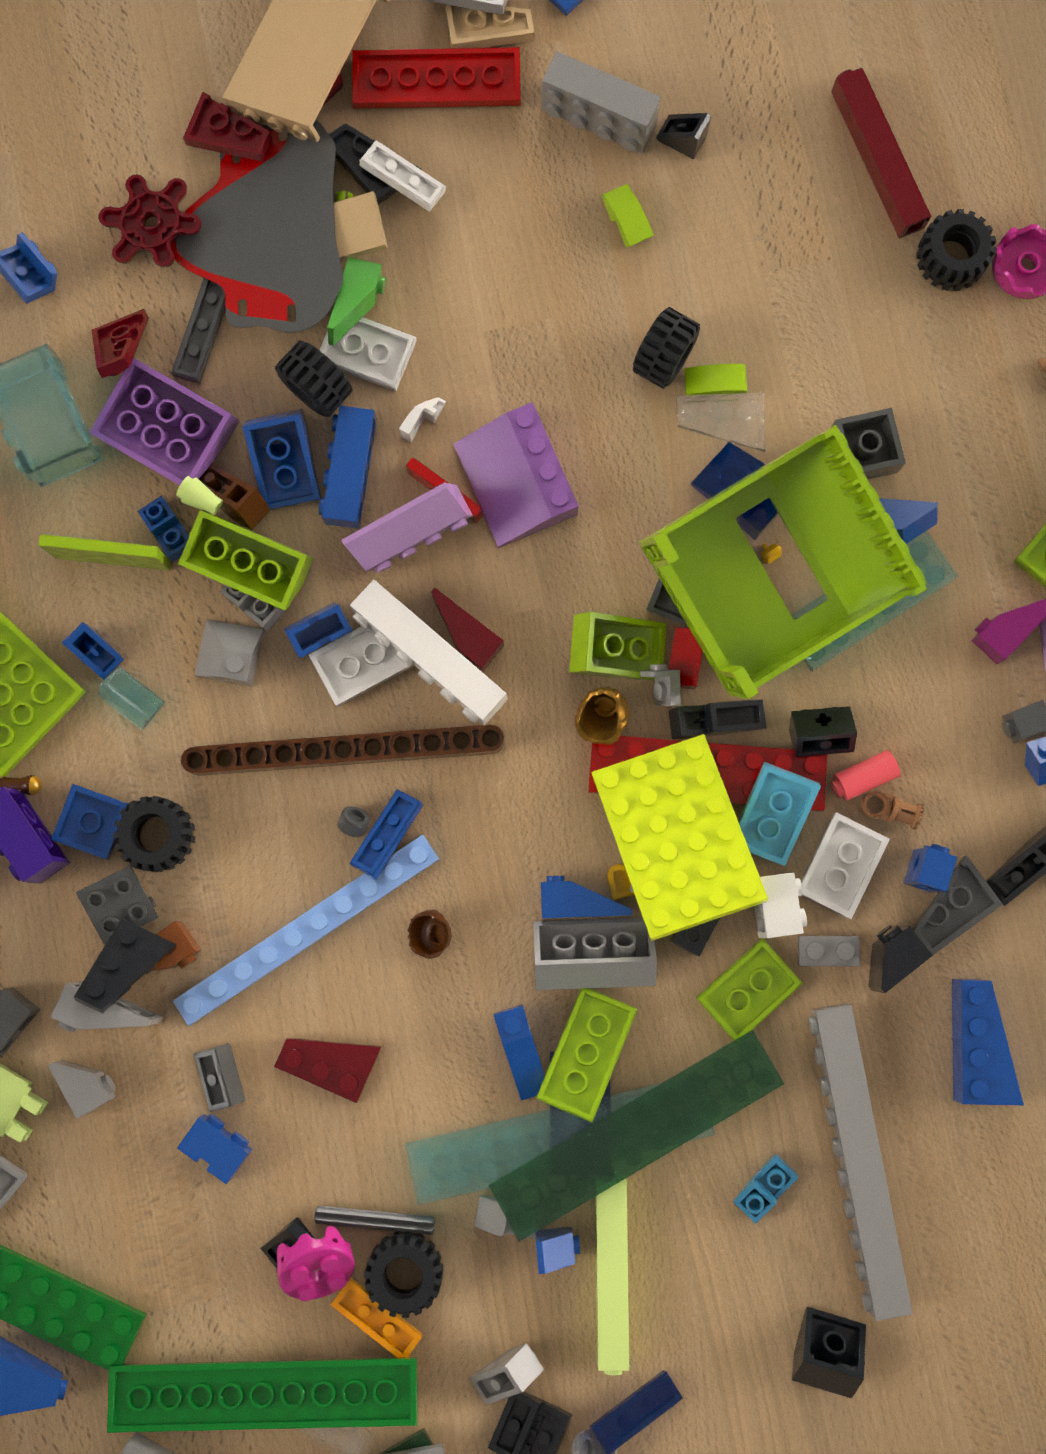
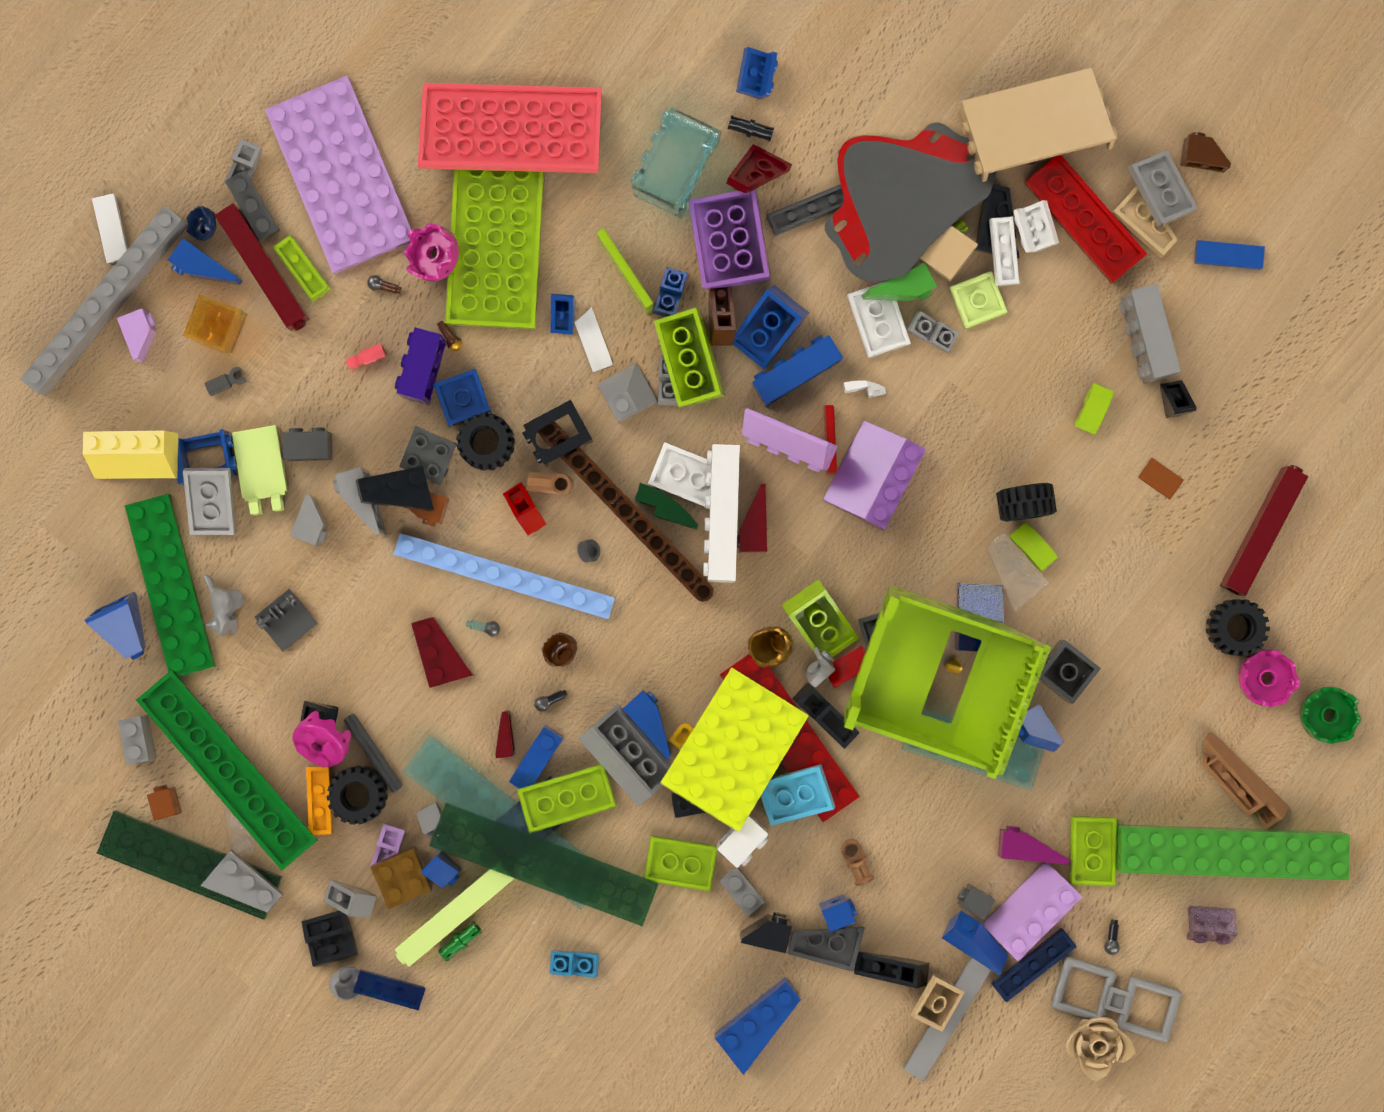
camera: 50 degrees right, 5 degrees up
(74, 319) = (750, 128): none -> black pin
(89, 1251) = (223, 604): none -> light grey animal
(130, 697) = (553, 357): clear light blue slope -> none
(142, 206) = (853, 108): dark red plate -> none
(149, 644) = (593, 341): none -> white sticker
(161, 1197) = (285, 620): none -> dark grey hinge
(197, 495) = (703, 298): yellowish green cone -> none
(215, 1146) = (340, 628): blue brick -> none
(219, 1077) = (379, 596): dark grey slope -> none
(221, 781) = (549, 455): none -> black panel
(223, 131) = (942, 118): dark red wing -> none
(250, 807) = (548, 483): none -> medium nougat piece
(256, 851) = (524, 509): none -> red slope
(314, 378) = (831, 306): black tyre -> none
(317, 629) = (683, 435): blue brick -> none
(349, 987) = (490, 628): none -> piece
(375, 706) = (665, 506): none -> dark green slope
(386, 834) = (597, 576): blue tile -> none
(405, 128) = (1036, 227): none -> white bracket
(422, 309) = (932, 332): none -> light grey slope
(429, 241) = (978, 300): none -> yellowish green tile
(469, 996) = (542, 703): none -> piece
(475, 1068) = (505, 741): none -> dark red slope
(487, 1288) = (388, 843): none -> lavender slope
(528, 1300) = (401, 877): none -> pearl gold brick
(646, 1291) = (460, 941): none -> green pin
(748, 210) = (1160, 478): none -> dark orange sticker
(822, 731) = (869, 784): black brick -> none
(830, 1353) = (511, 1074): black slope -> none
(843, 865) = (799, 859): white plate -> none
(861, 1162) = (635, 1005): light grey brick -> none
(865, 775) = (863, 830): coral brick -> none

